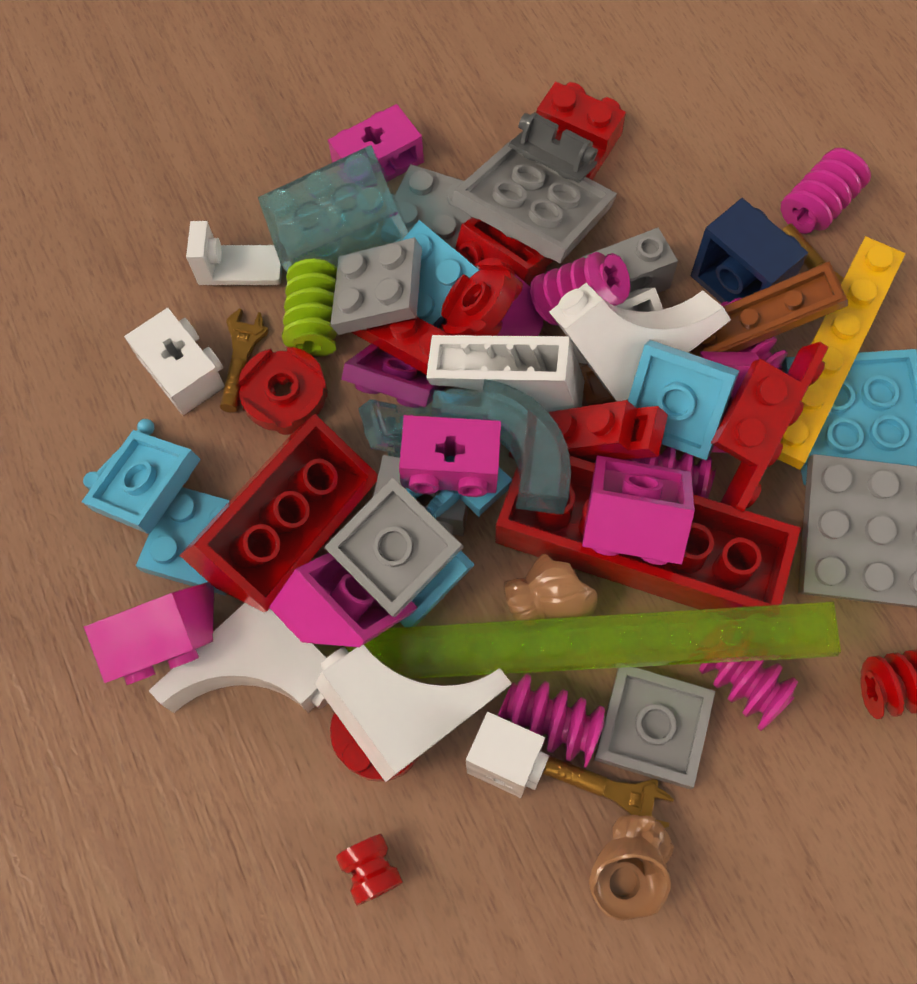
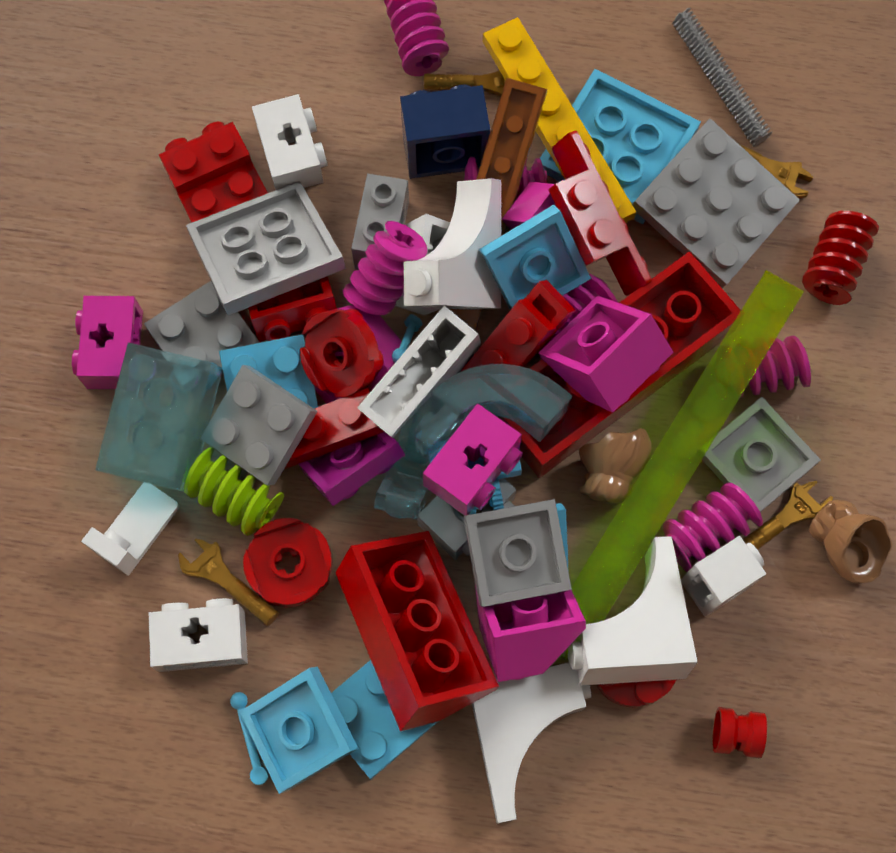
camera: 60 degrees left, 5 degrees up
(153, 633) = (454, 788): dark pink slope -> none
(569, 157) = (213, 207): dark grey hinge -> none
(643, 164) = (284, 123): none -> white brick

